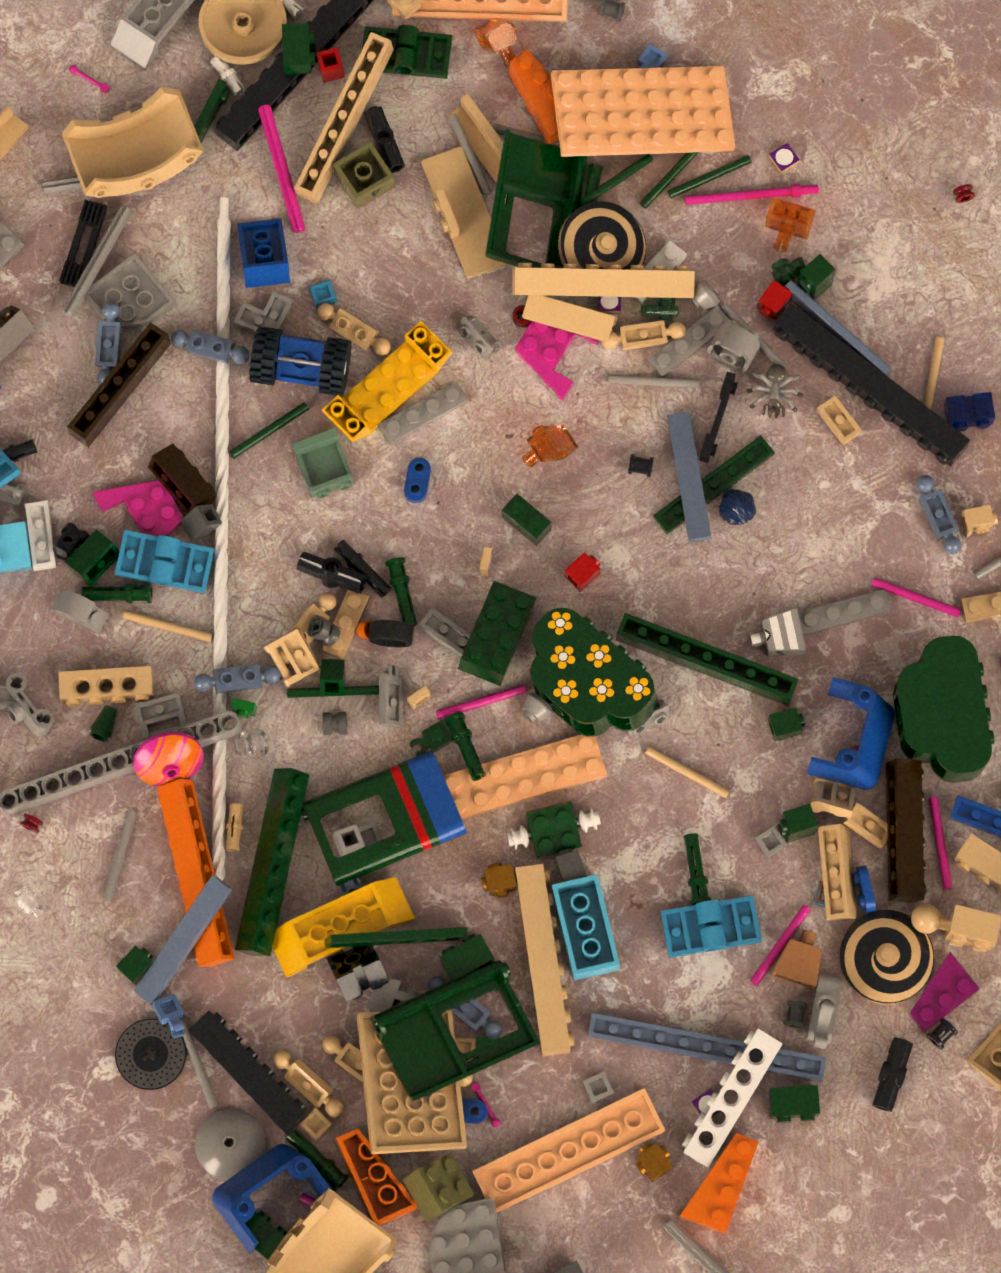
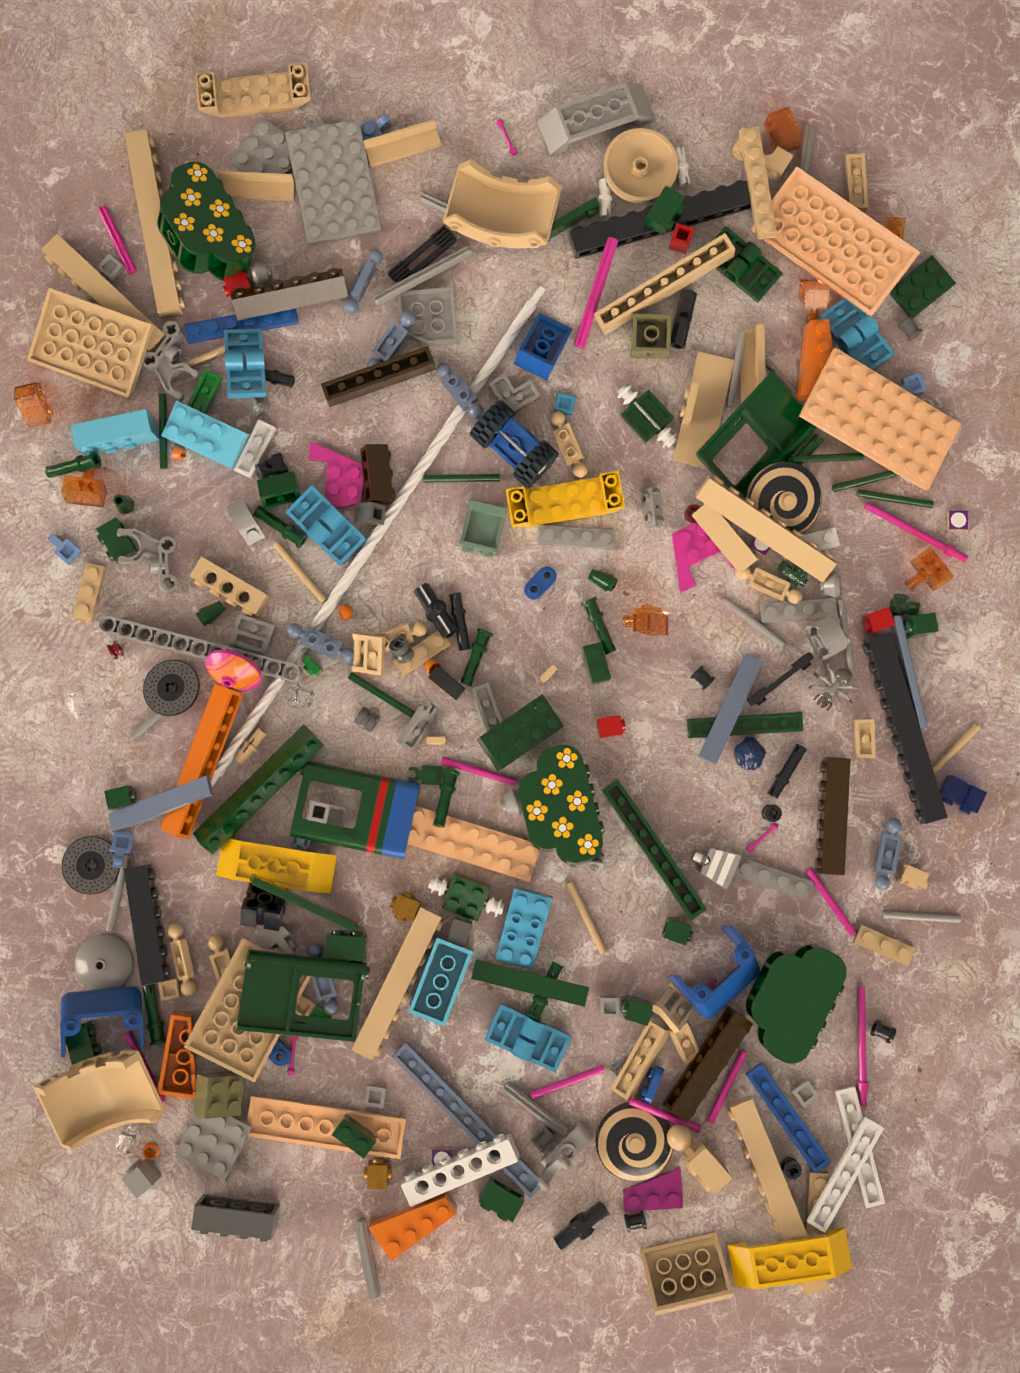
camera: 30 degrees right, 10 degrees up
(40, 315) = (365, 275): none -> sand blue plate
(102, 811) = (164, 700): none -> piece
(240, 634) = (345, 611): none -> orange hinge
(332, 677) = (386, 686): dark green brick -> none
(412, 253) = (647, 416): none -> dark green plate
(478, 436) = (604, 580): none -> dark green cone
(495, 476) = (595, 616): none -> dark green pin
(564, 45) = (857, 334): none -> dark azure plate
(604, 1133) = (354, 1136): none -> dark green brick
(631, 820) = (523, 927): none -> dark azure plate
(675, 869) = (530, 983): none -> dark green tile
(766, 992) = (535, 1109): none -> light grey axle
(786, 507) = (789, 767): none -> black pin
(800, 961) = (572, 1104): medium nougat torso -> none
(801, 555) = (766, 810): none -> black bush
(802, 598) = (750, 848): none -> dark pink hinge
(860, 513) = (833, 816): none -> dark brown brick
(893, 909) = (663, 1114): none -> dark pink bar

